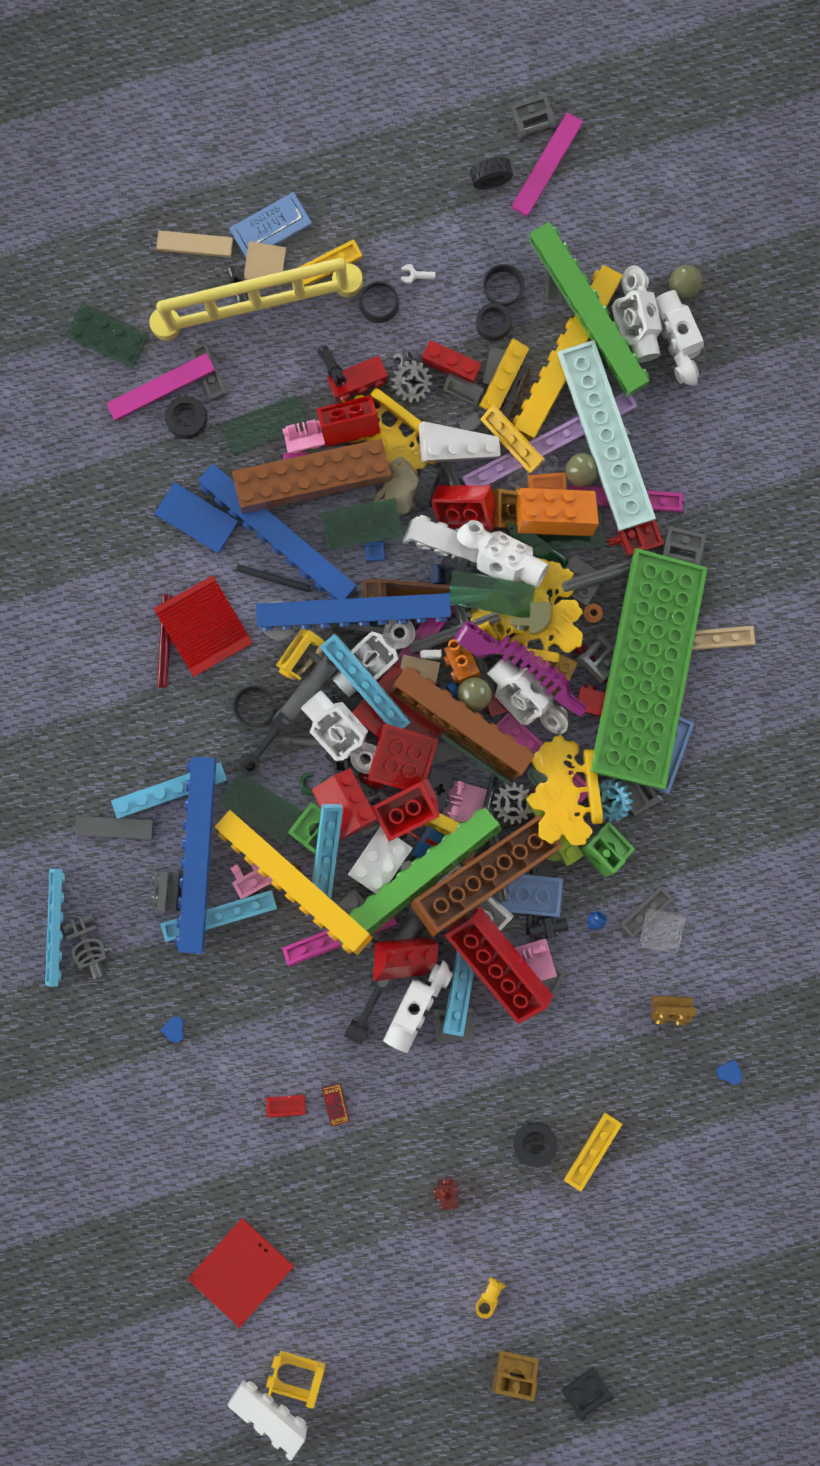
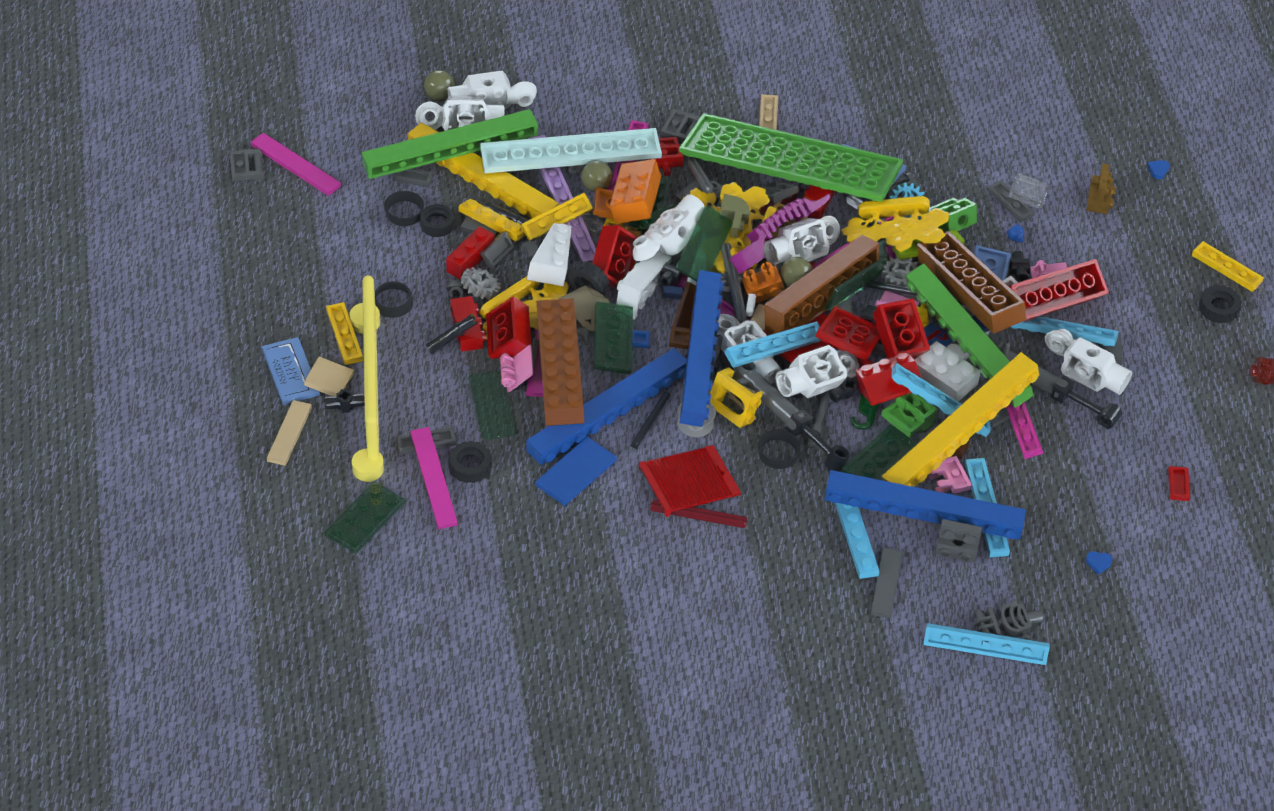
camera: 90 degrees left, 35 degrees down
(335, 1104) = (1178, 444): dark red tile -> none
(404, 958) = (1040, 351): red slope -> none
(415, 274) = (373, 270): white bar -> none
(491, 173) = (296, 193): black tyre -> none

